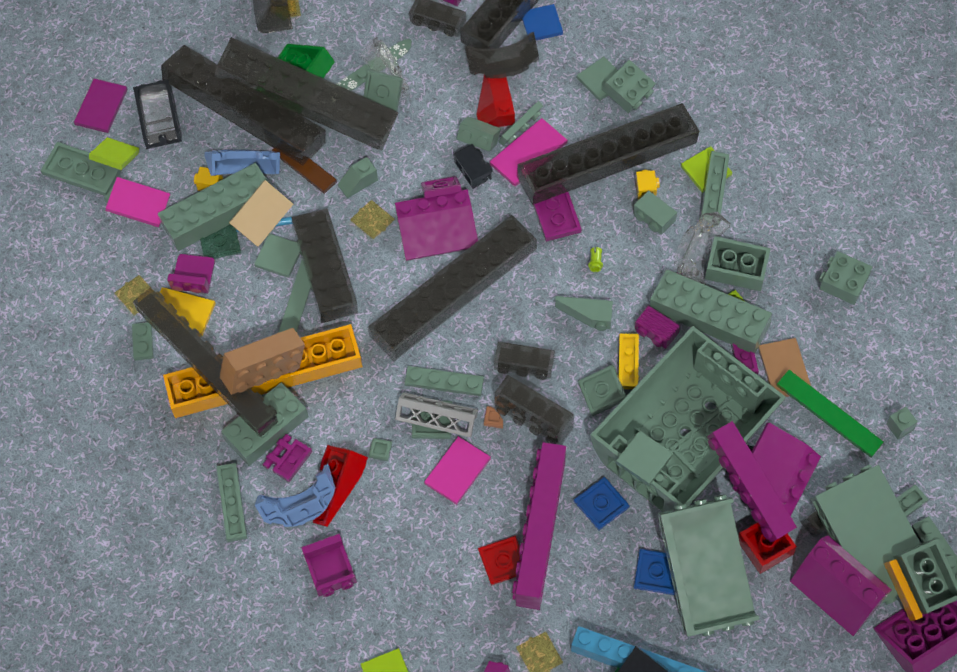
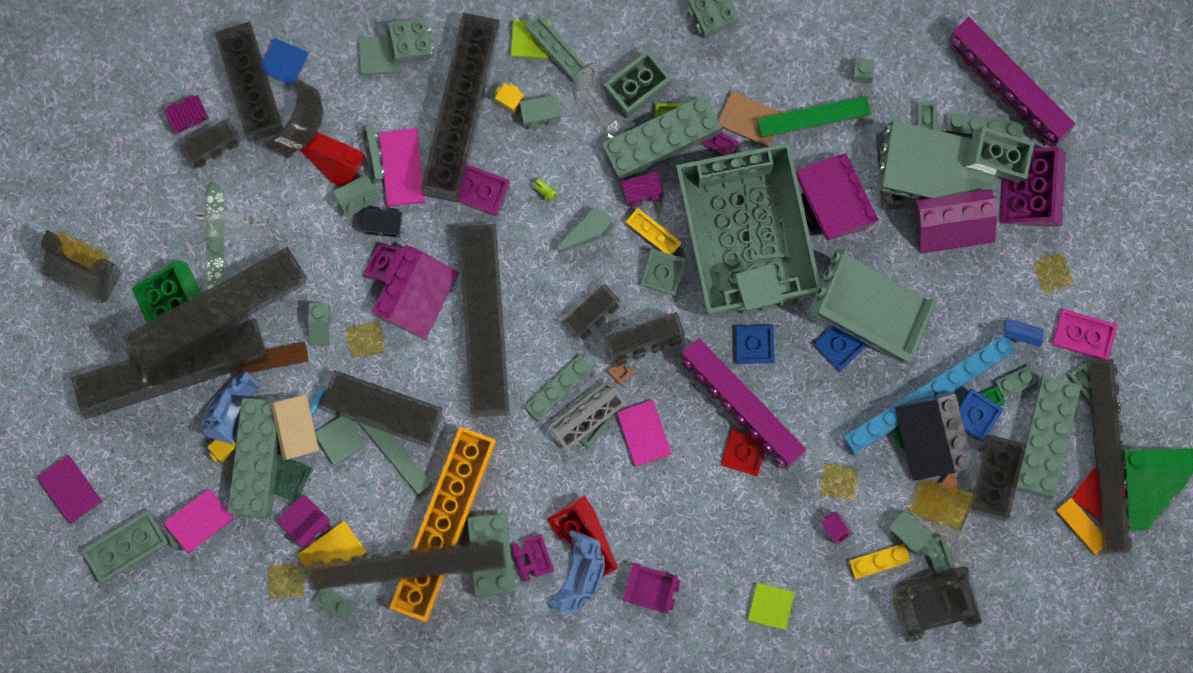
camera: 55 degrees left, 15 degrees up
(114, 153) = (133, 510): lime tile -> none
(157, 114) = (119, 446): door -> none
(231, 502) = (538, 627): sand green plate -> none
(262, 361) = (452, 521): medium nougat brick -> none
(380, 449) = (580, 480): sand green tile -> none
(383, 89) = (252, 244): sand green tile -> none
(751, 482) = (837, 223): magenta brick -> none
(763, 552) = (883, 247): red brick -> none
(903, 590) = (995, 180): light orange tile -> none

